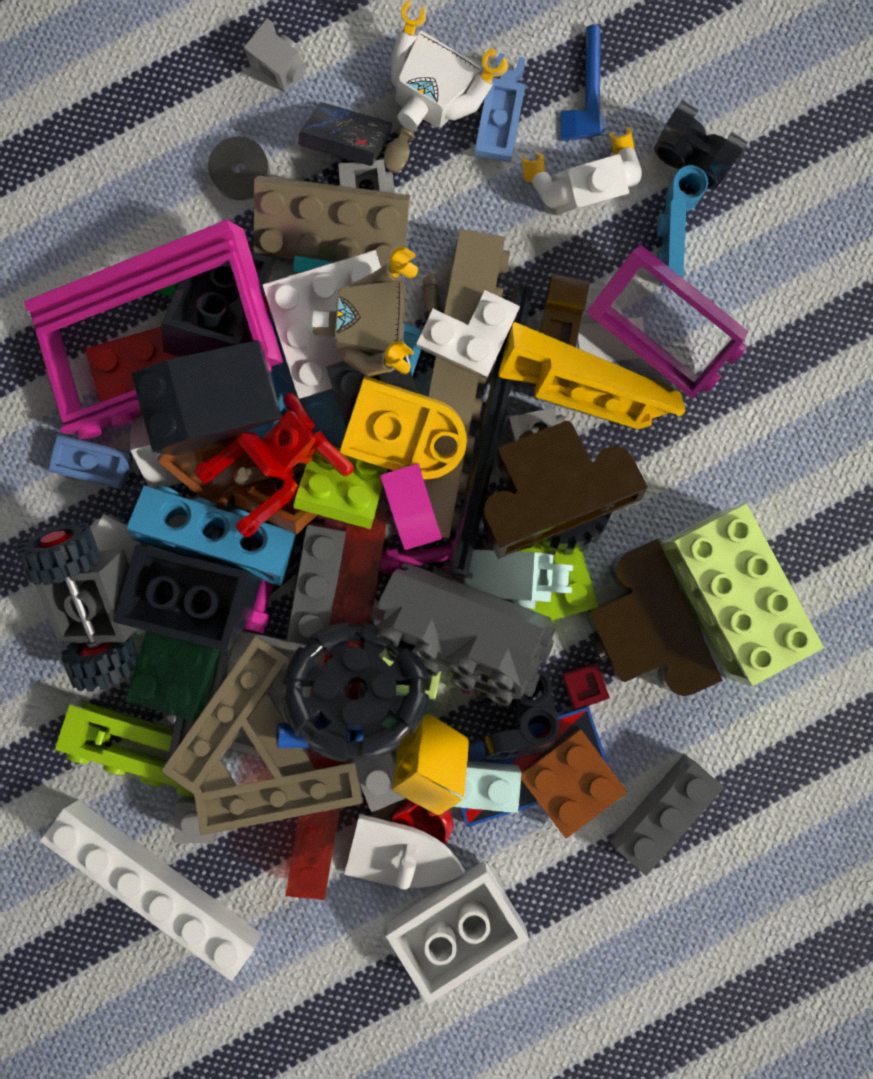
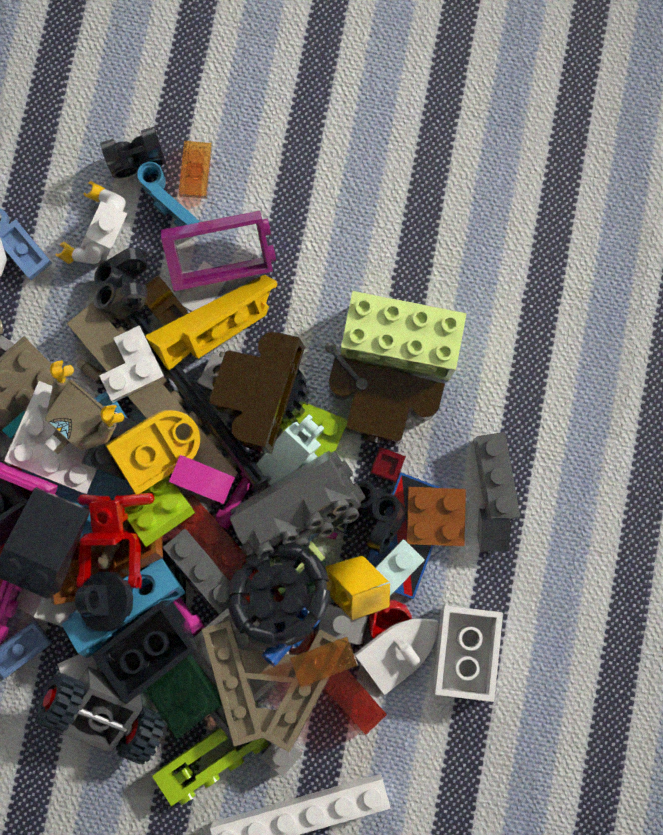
camera: 55 degrees left, 5 degrees down
(200, 512) = (104, 601): none -> black tile
(323, 798) = (324, 661): none -> clear orange plate
(536, 256) = (118, 291): none -> black piece
(591, 122) = (67, 200): blue piece -> none
(603, 858) = (493, 532): none -> black panel
(650, 591) = (361, 383): none -> dark grey hinge
(733, 227) = (195, 169): none -> clear orange plate

